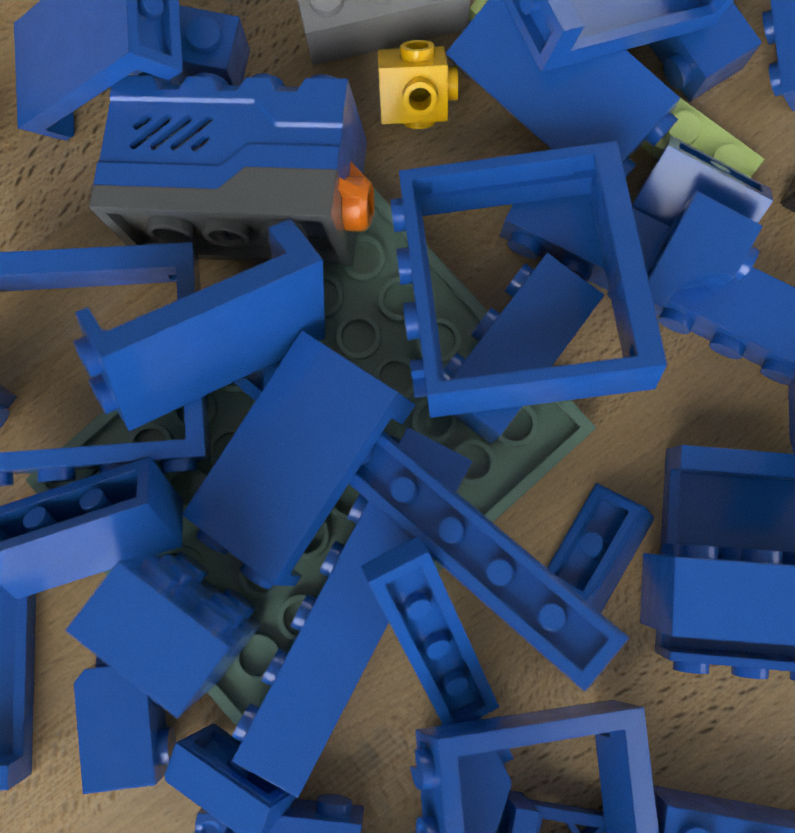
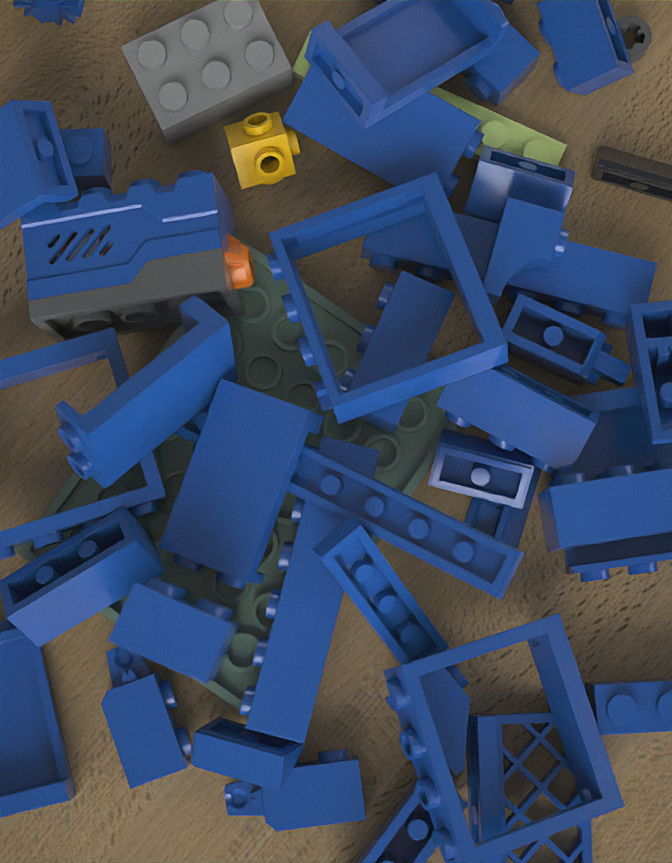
camera: 20 degrees left, 0 degrees up
(588, 509) = (481, 469): none -> blue slope
(655, 458) = (521, 415): none -> blue brick
(717, 385) = (561, 344): none -> blue hinge

